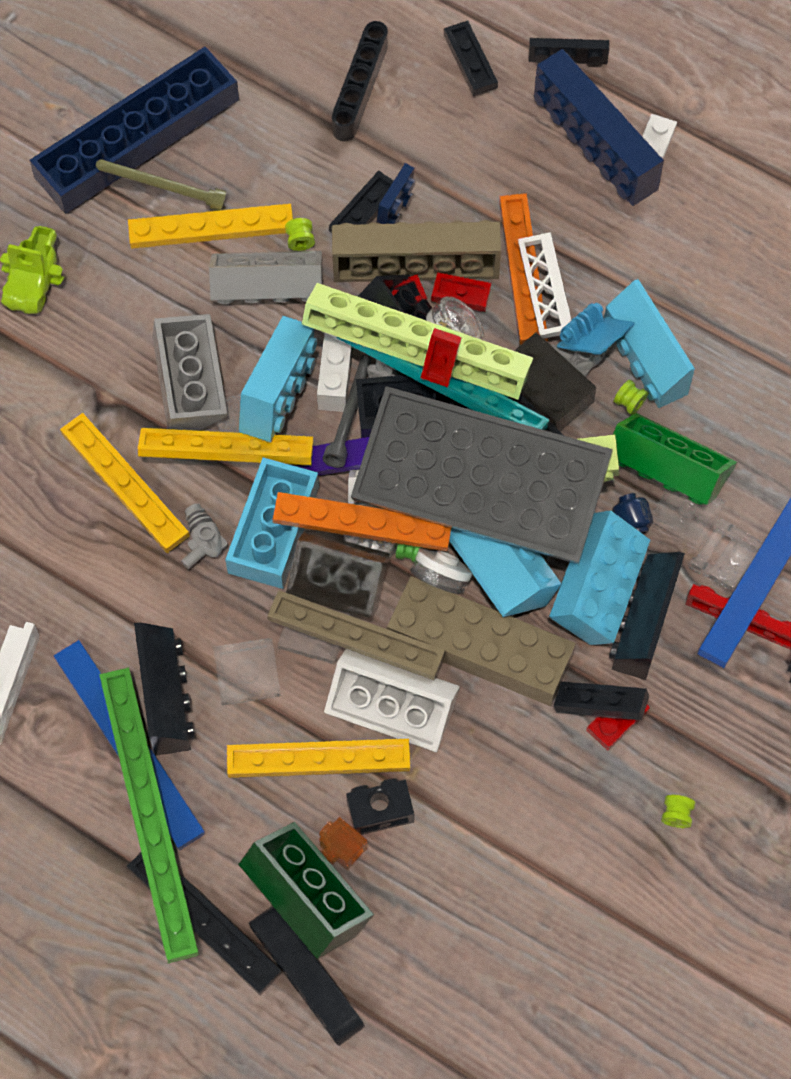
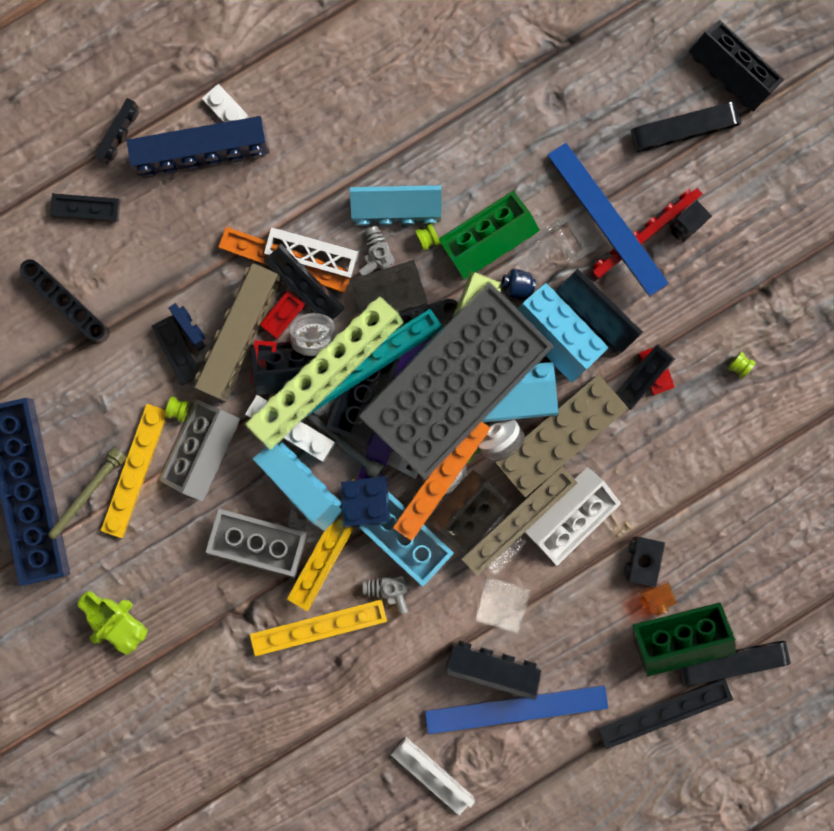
camera: 65 degrees left, 20 degrees up
(149, 816) = (579, 720): bright green plate -> none
(292, 454) = (365, 502): none -> dark blue plate
(318, 758) = (590, 585): yellow plate -> none
(441, 357) = (354, 364): red plate -> none
(507, 290) = (303, 282): none -> black plate
(592, 332) = (371, 238): dark azure hinge -> none

